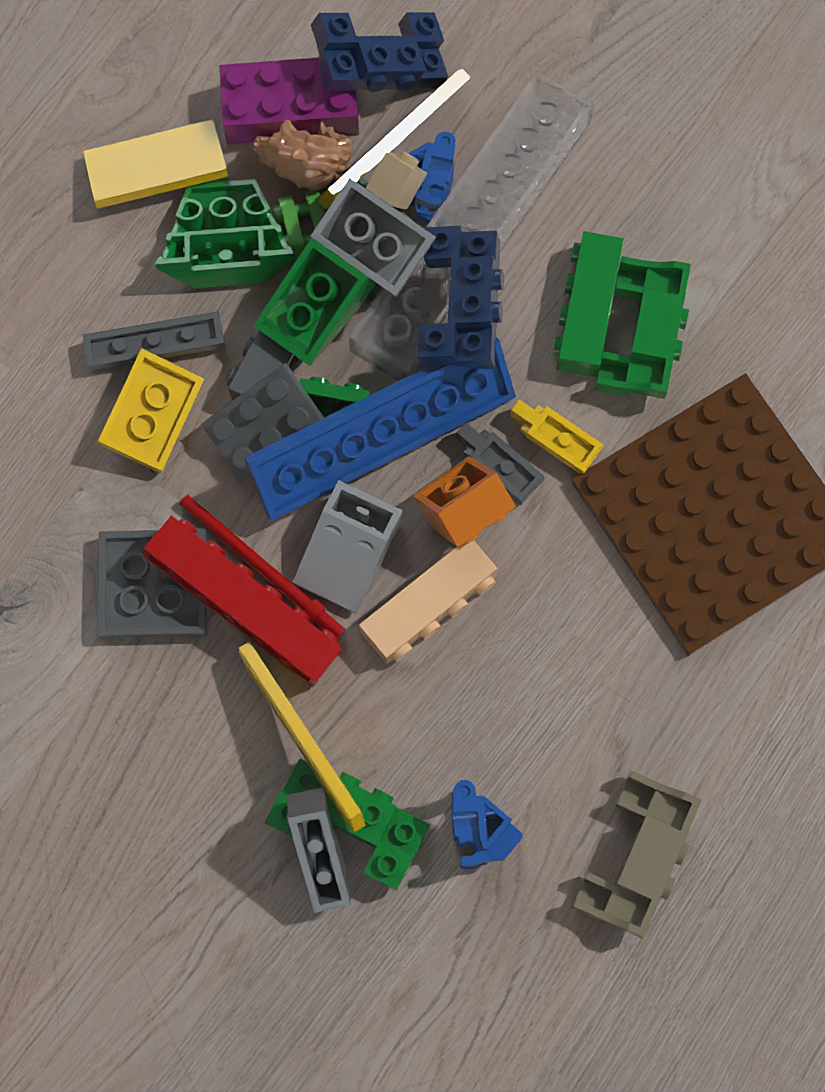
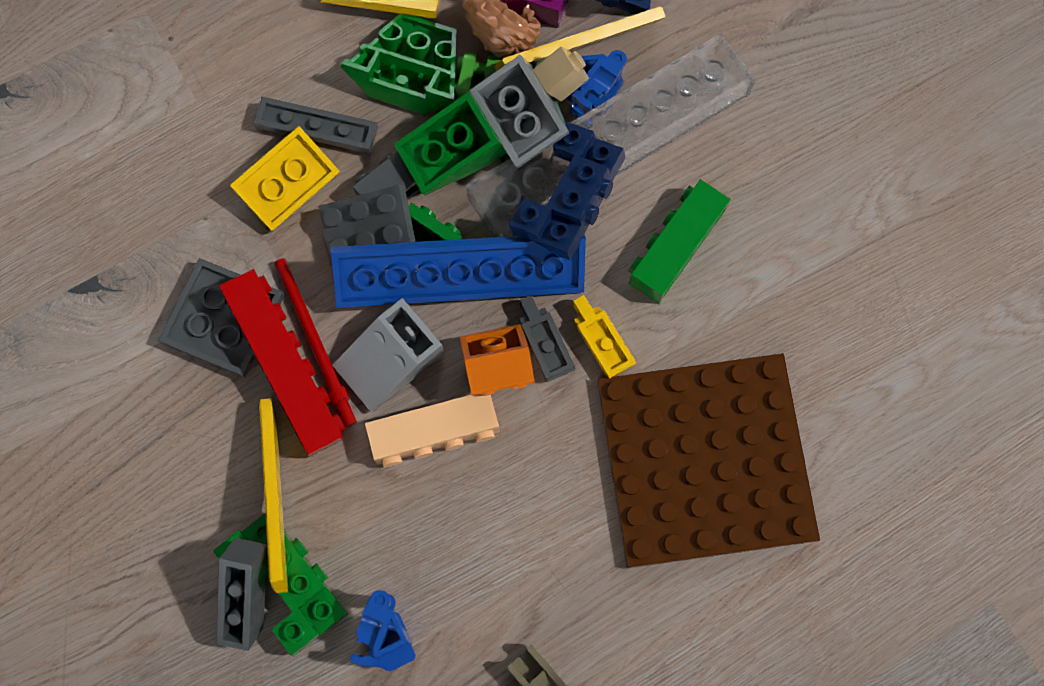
camera: 25 degrees right, 0 degrees up
(660, 316) = (717, 296): green bracket -> none

